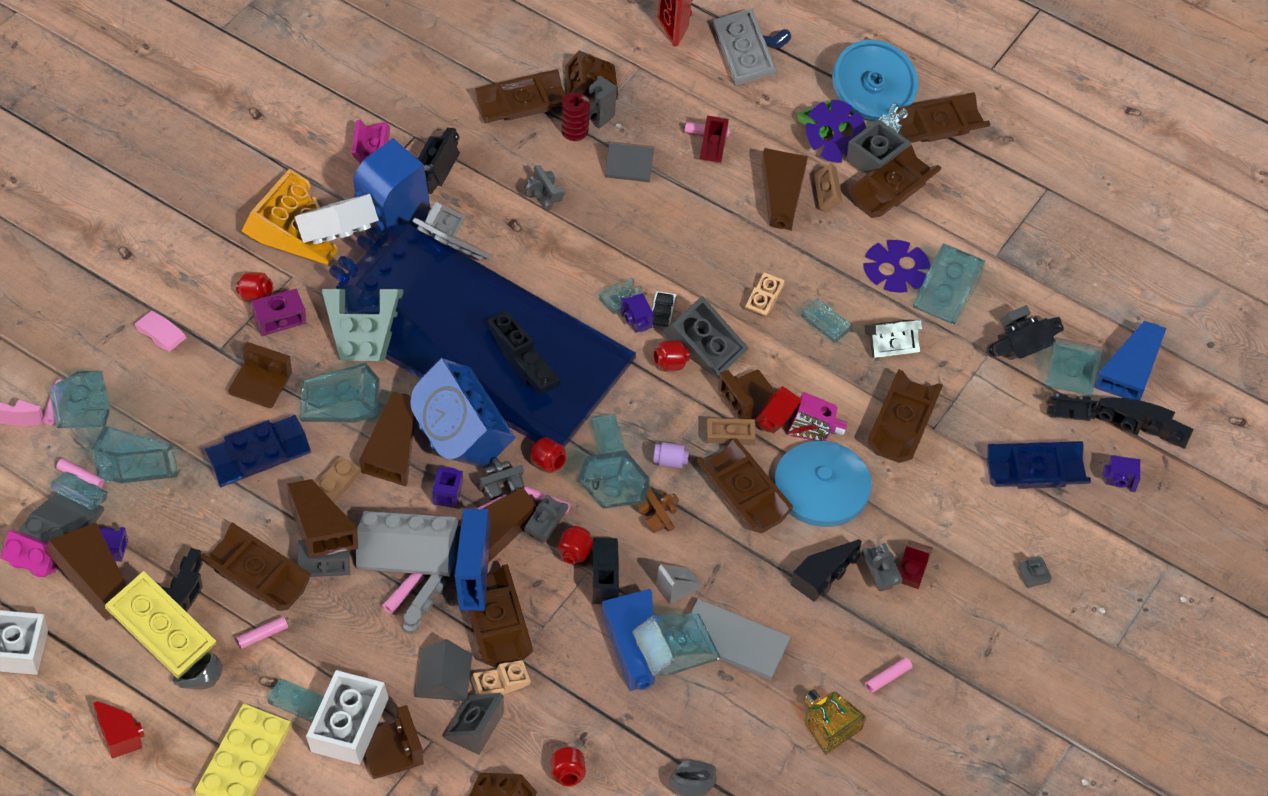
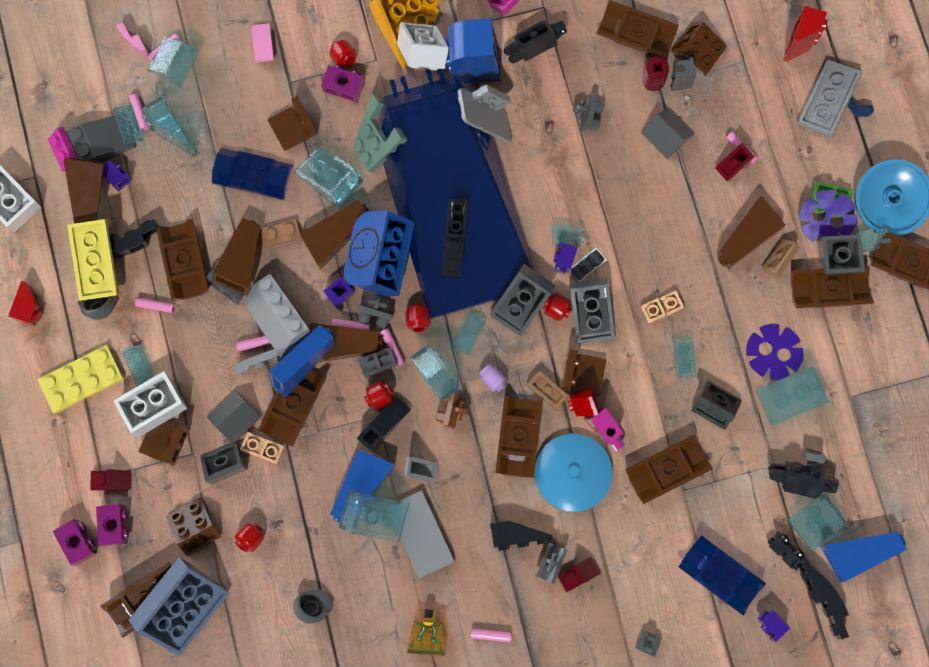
camera: 50 degrees right, 25 degrees up
(634, 370) = (522, 300): none -> dark grey slope

